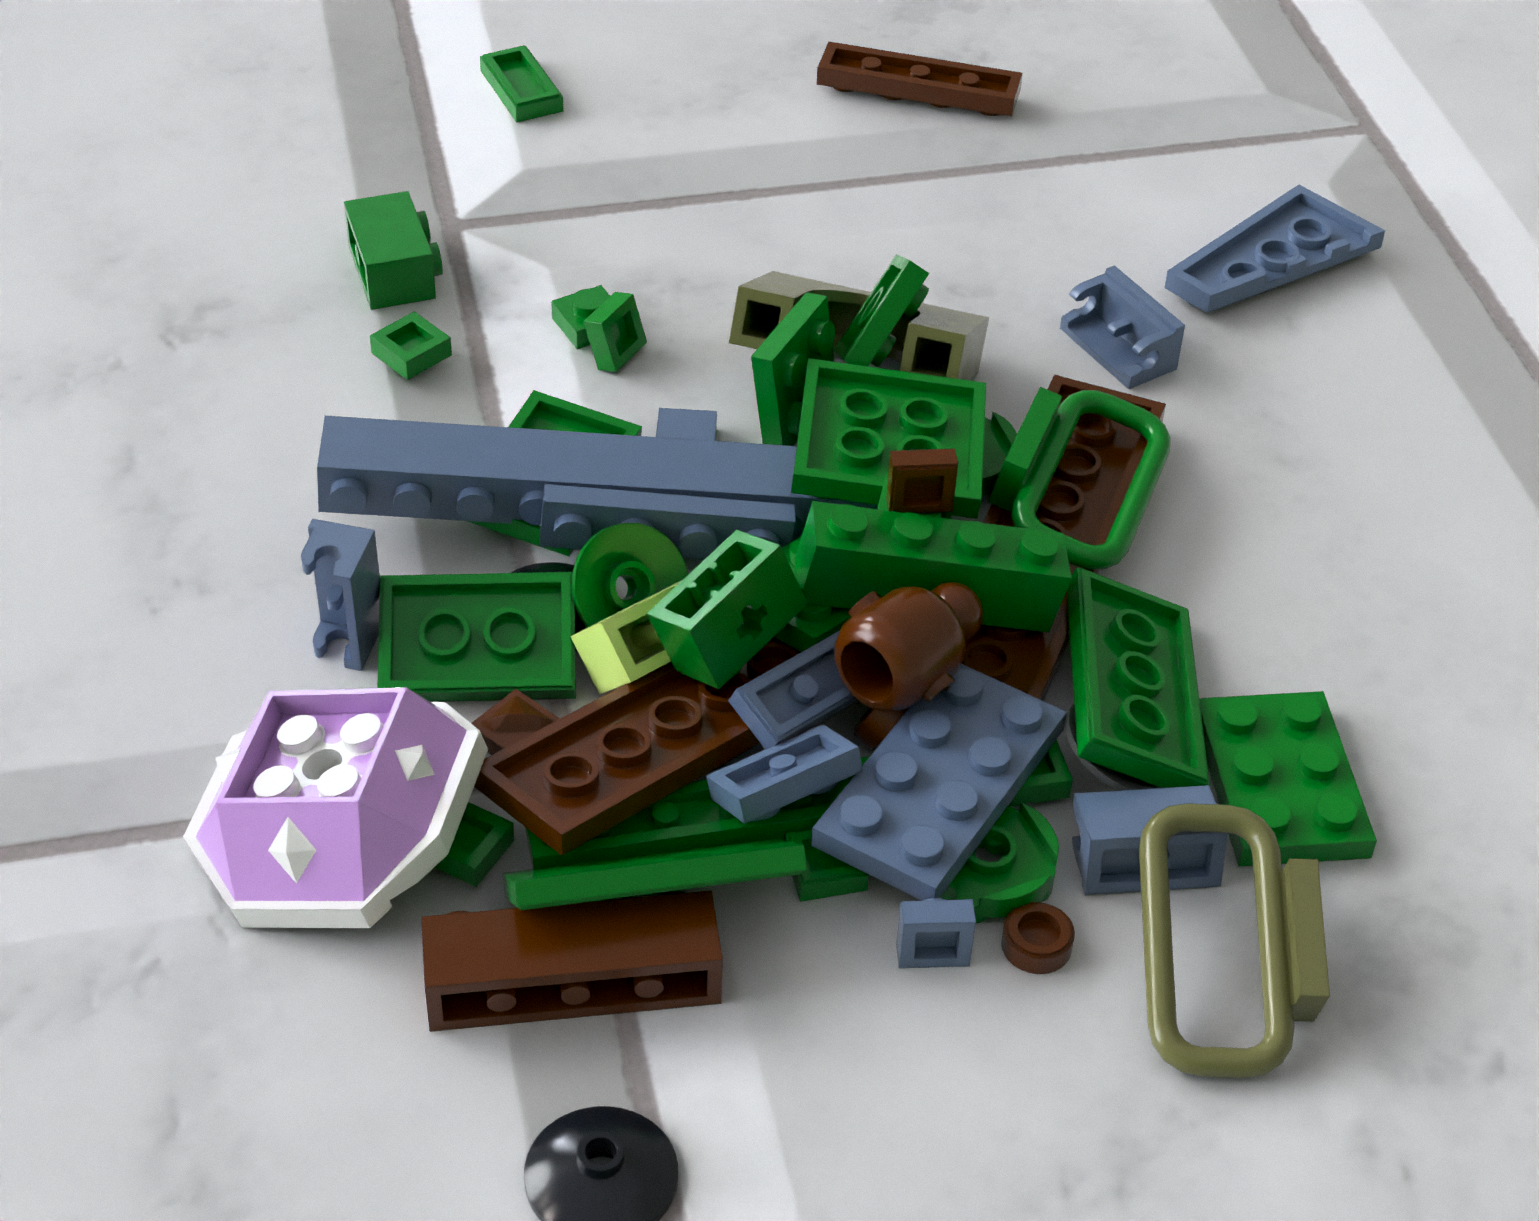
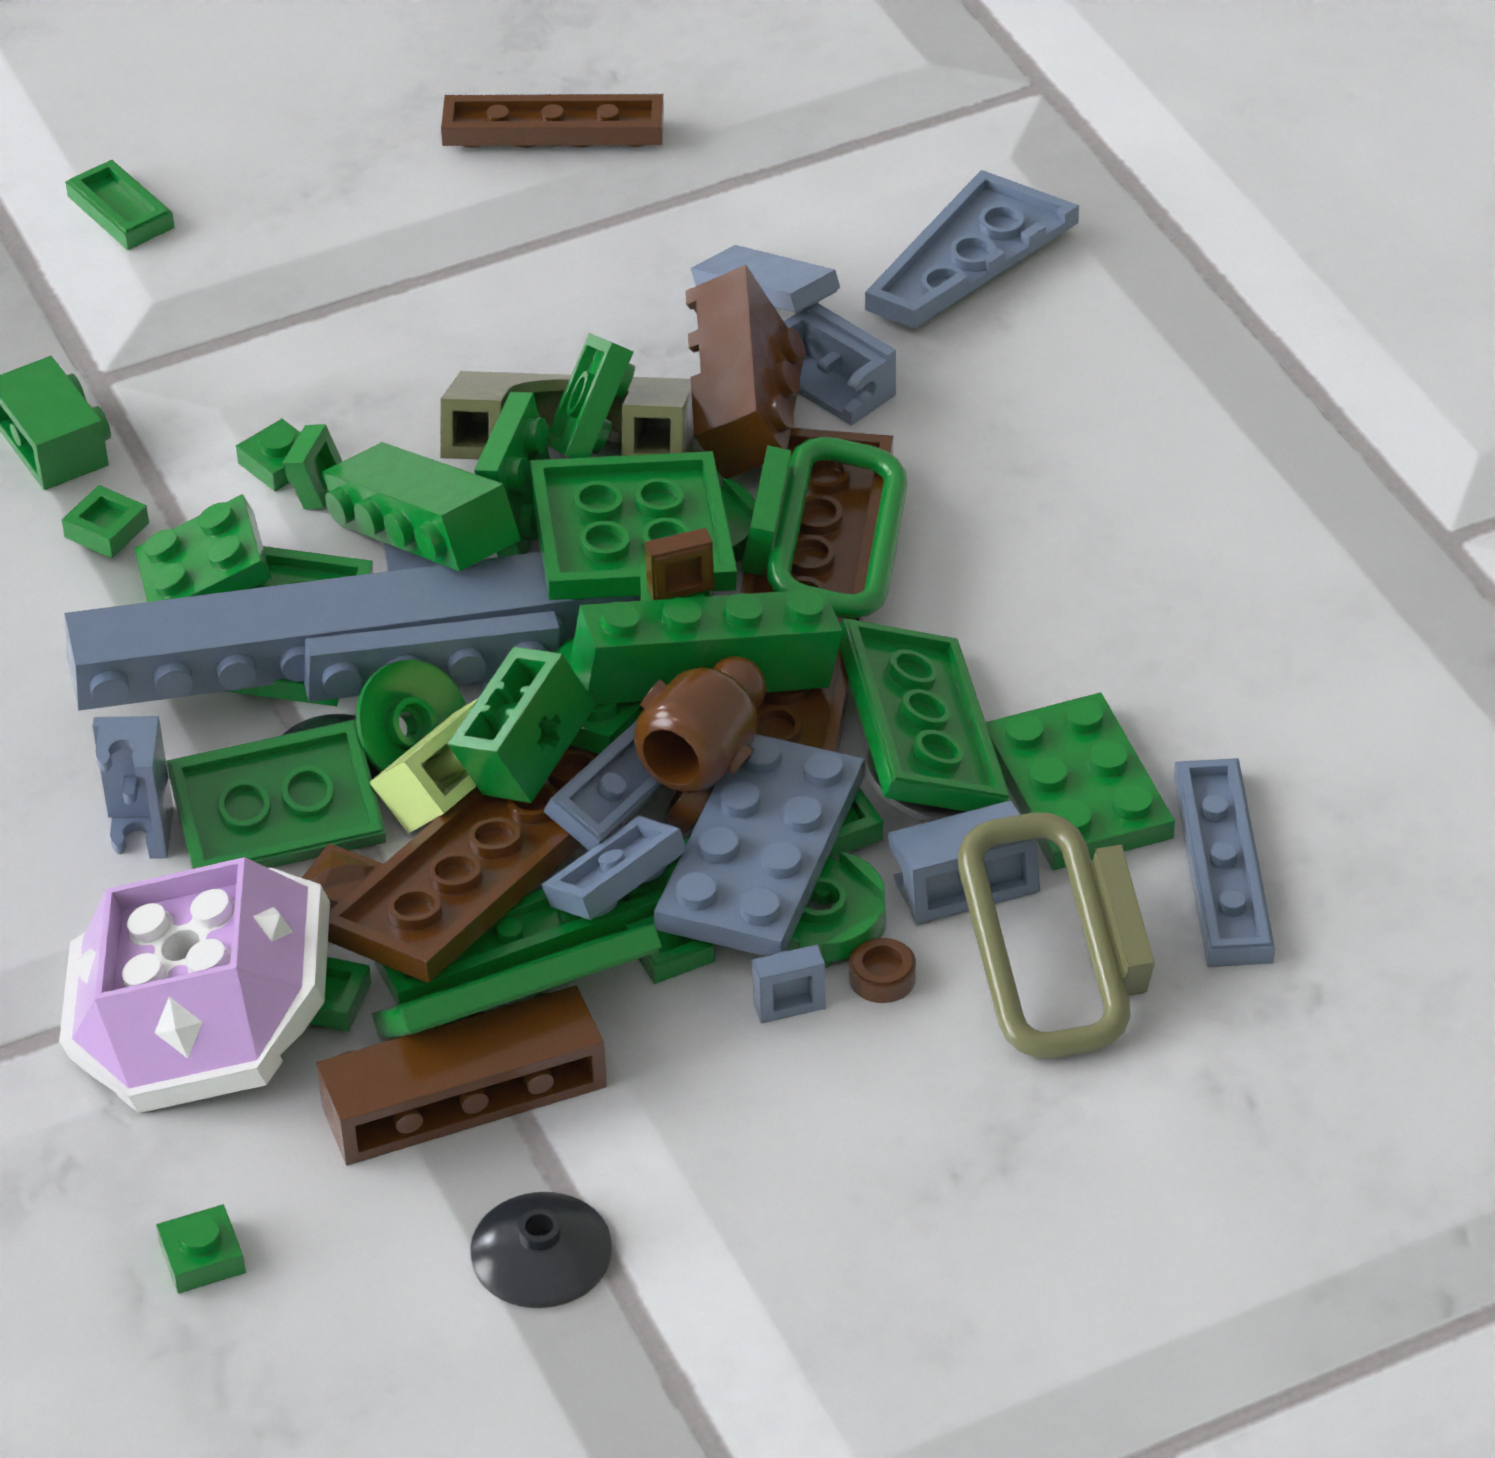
camera: 10 degrees left, 0 degrees up
(247, 1093) = (201, 1248): none -> green plate
(489, 390) = (205, 555): none -> green plate
(697, 383) = (421, 506): none -> green brick
(1036, 318) = (746, 373): none -> reddish brown wedge
(1078, 242) = (786, 281): none -> sand blue tile
(1420, 899) = (1223, 863): none -> sand blue tile

